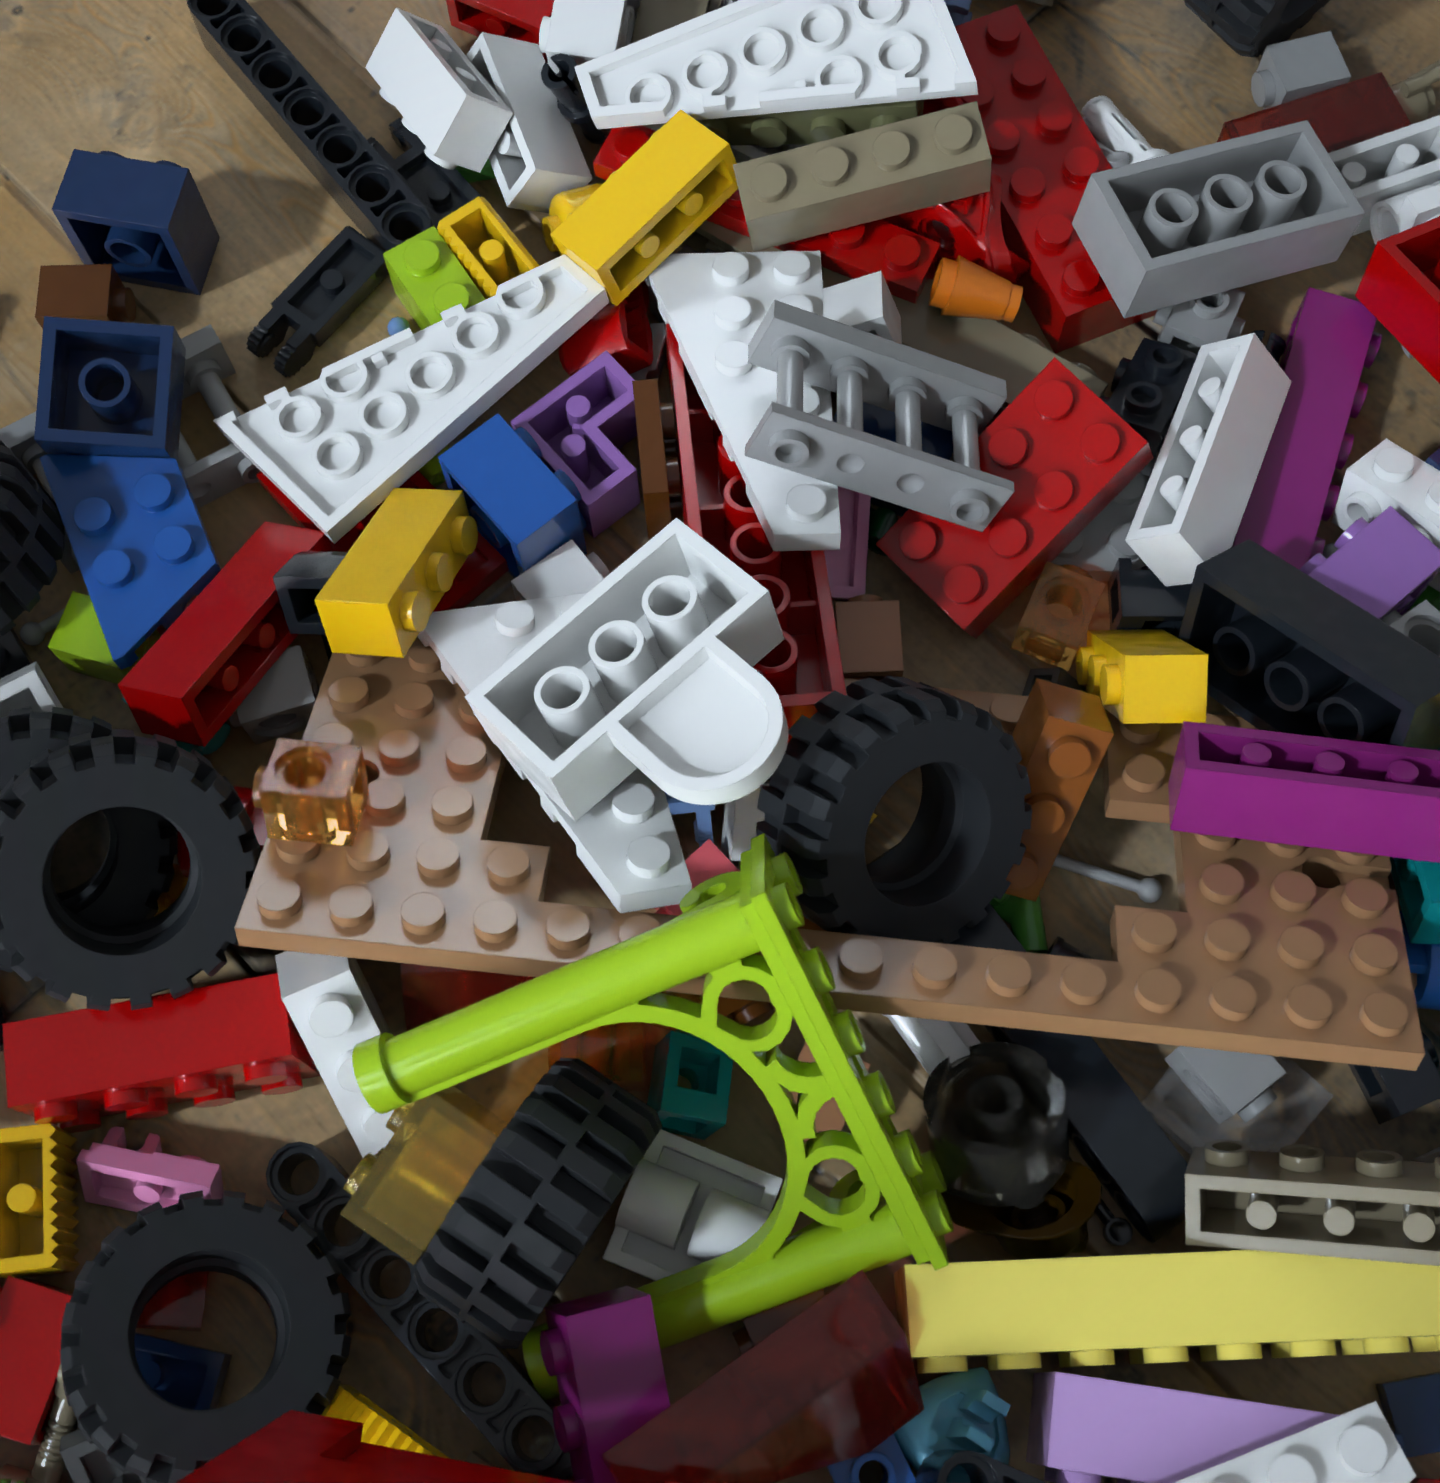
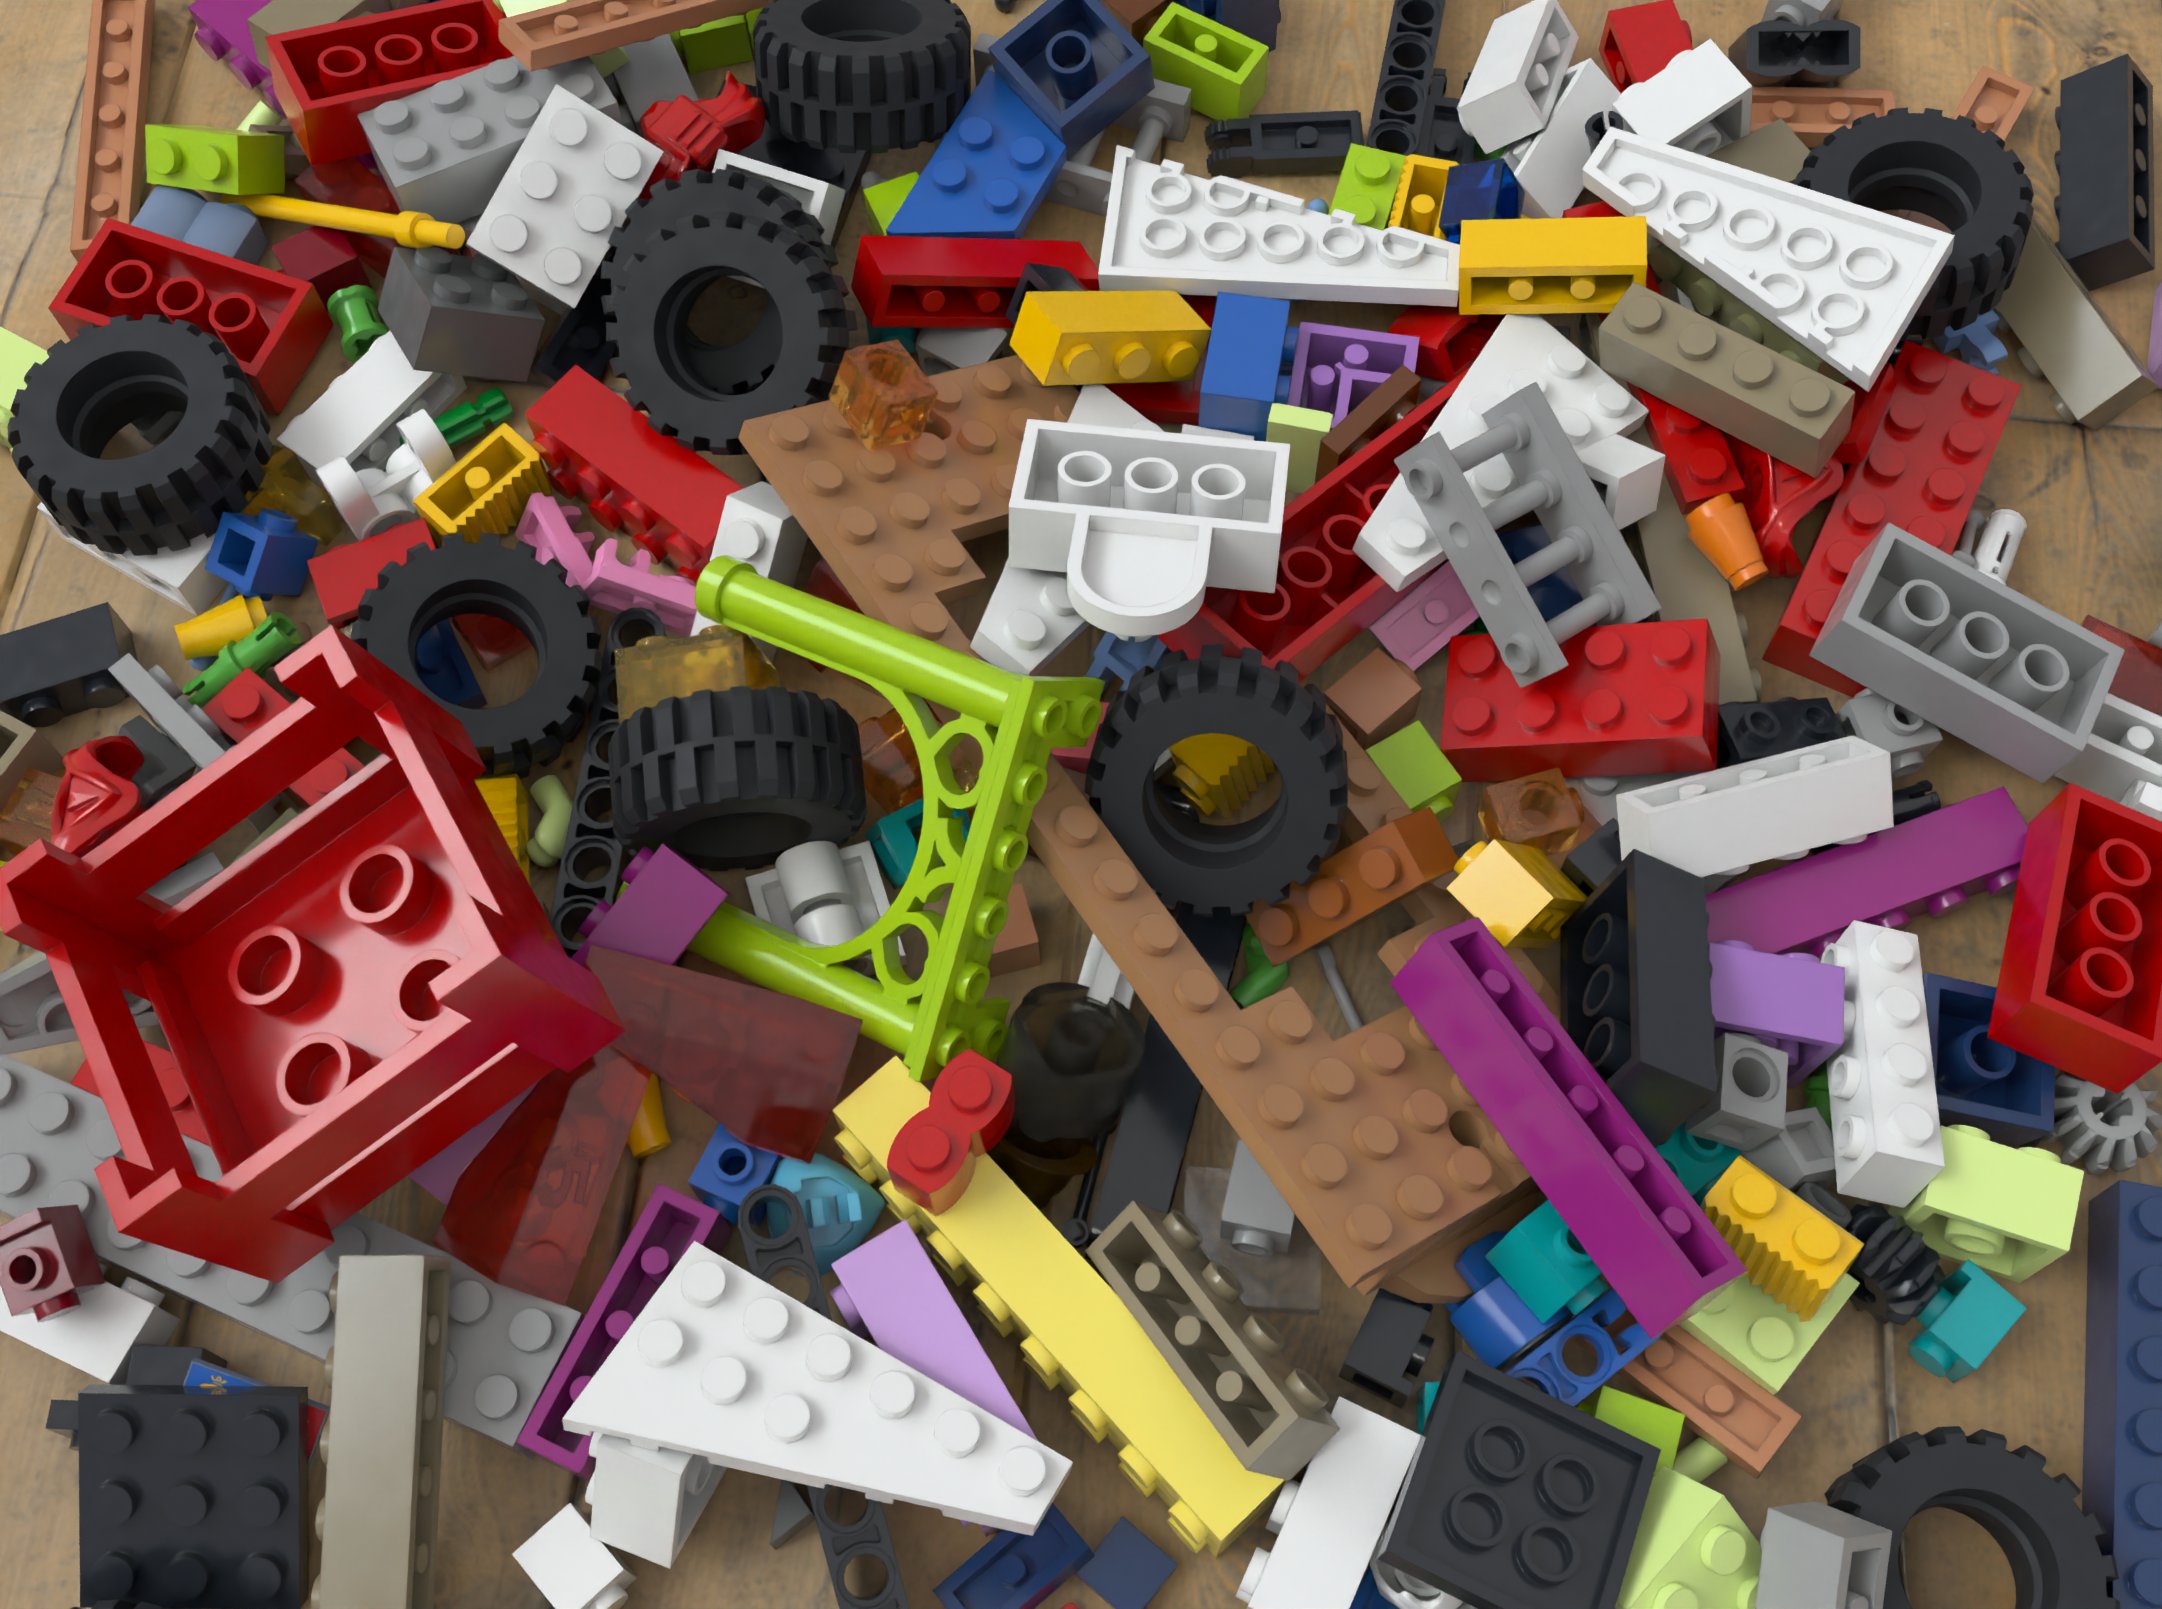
camera: 50 degrees right, 5 degrees down
(197, 290) = (1216, 62): none -> lime brick
(289, 1118) = (625, 587): none -> bright pink plate
(408, 1380) = (551, 832): none -> yellowish green arm
(530, 209) = (1479, 193): none -> clear blue brick
(613, 515) = (1303, 431): none -> yellowish green tile
(959, 660) = (1418, 770): none -> lime brick
(1035, 1295) = (940, 1144): none -> red brick

